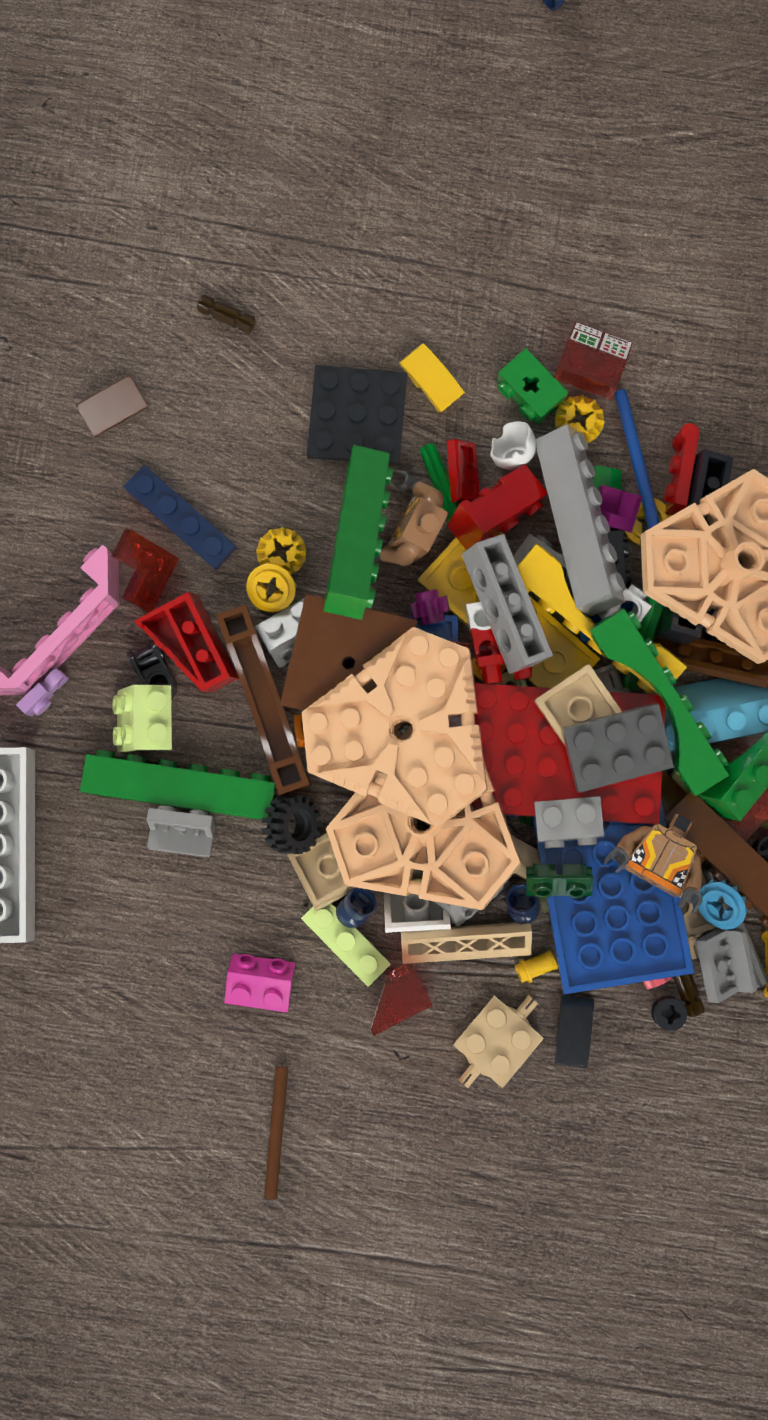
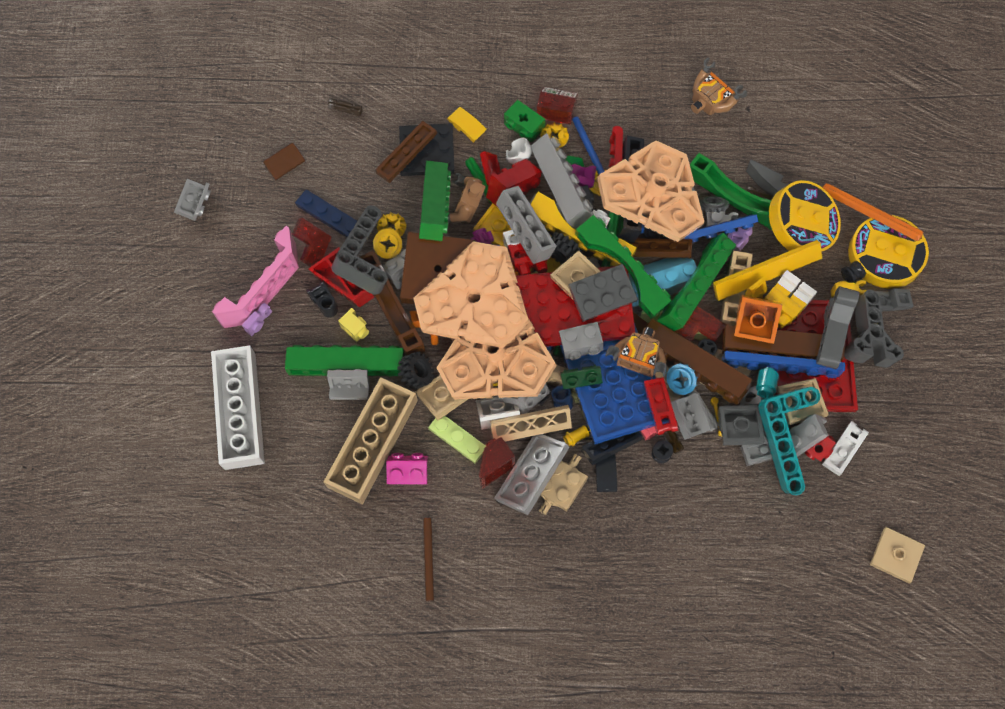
camera: 10 degrees left, 15 degrees down
(143, 718) = (318, 321): yellowish green bracket -> none
(200, 727) = (354, 325): none -> light yellow brick
(206, 933) = (371, 440): none -> tan brick
(215, 598) = (353, 268): none -> dark grey beam
(321, 422) = (406, 151): none -> reddish brown plate
(356, 907) = (461, 413): dark blue wheel -> none
(456, 1023) = (531, 473): none -> light grey plate
(565, 1006) = (601, 451): none -> black plate
(566, 649) = (565, 248): none -> black tyre
(680, 953) = (660, 405): none -> red plate

